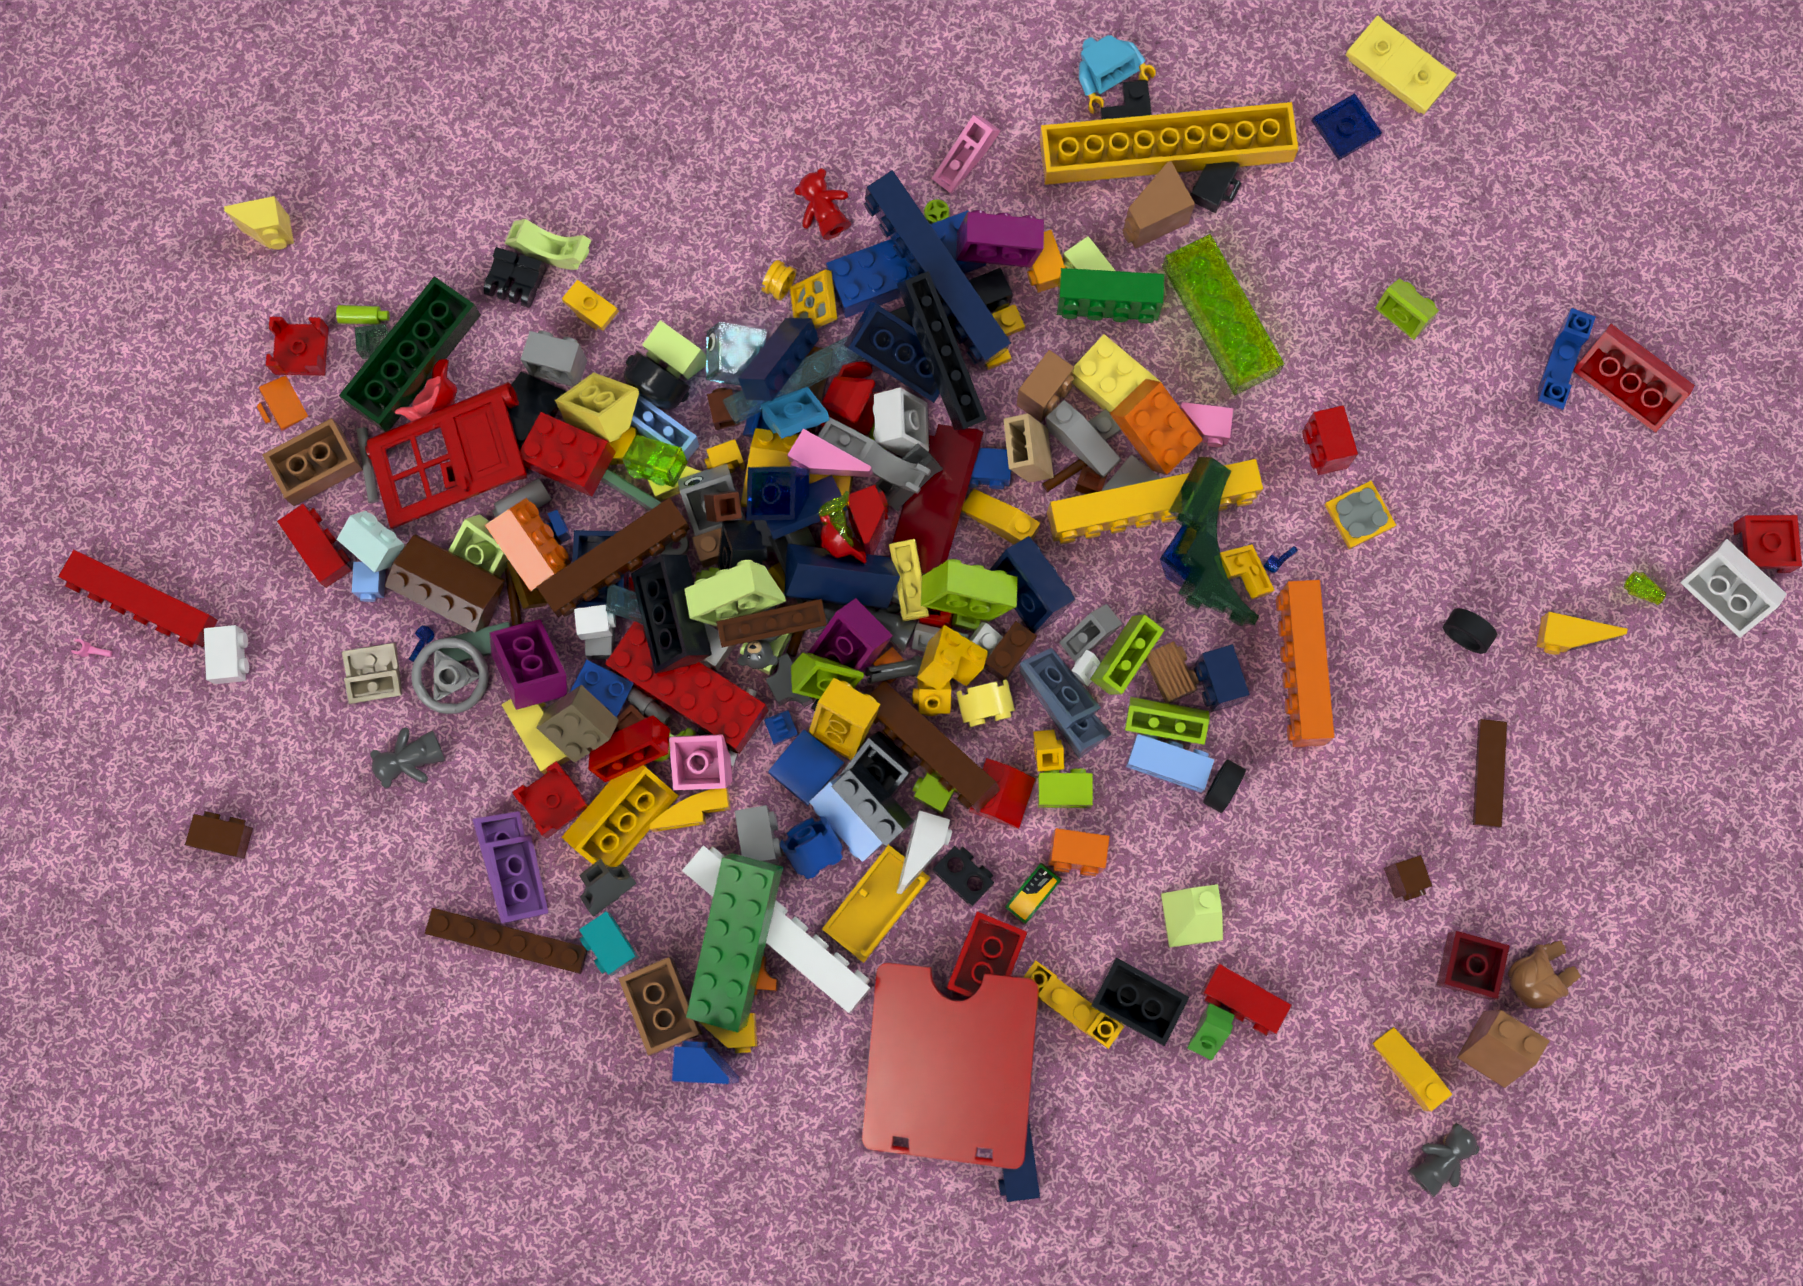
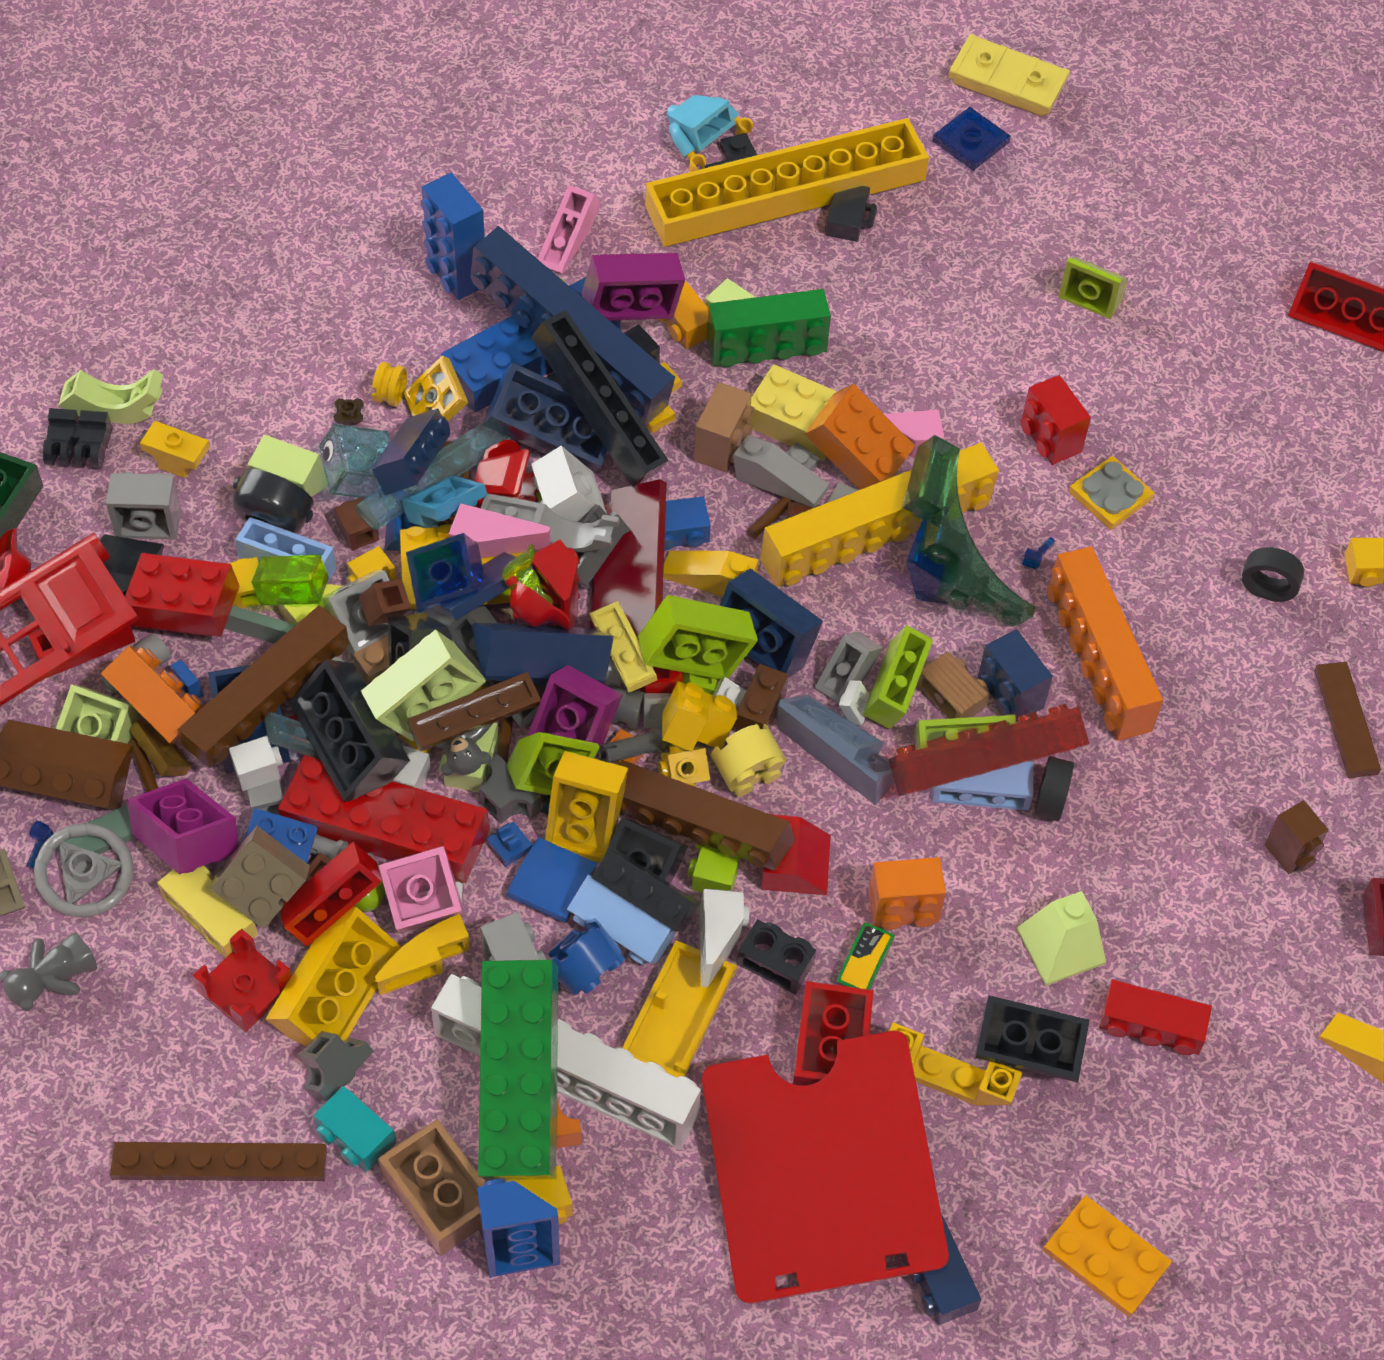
camera: 20 degrees left, 20 degrees down
(511, 867) = (209, 1070): medium lavender slope -> none
(599, 406) = (213, 536): light yellow slope -> none
(741, 303) = (348, 417): none -> dark brown plate
(826, 211) = (418, 303): red piece -> none
(858, 150) = (452, 229): none -> blue brick
(1028, 448) = (722, 487): tan brick -> none
(1048, 751) = (837, 796): yellow brick -> none
(1065, 789) = (869, 836): lime brick -> none
(1149, 1180) = (1107, 1256): none -> light orange plate
(1159, 208) = (797, 239): medium nougat slope -> none
(1178, 747) = (988, 751): none -> clear red brick
(1211, 1032) = (1127, 1062): bright green brick -> none
(1222, 314) = (899, 327): clear neon green brick -> none
(1246, 563) = (1004, 562): yellow plate -> none
(1574, 332) = (1273, 302): blue slope -> none

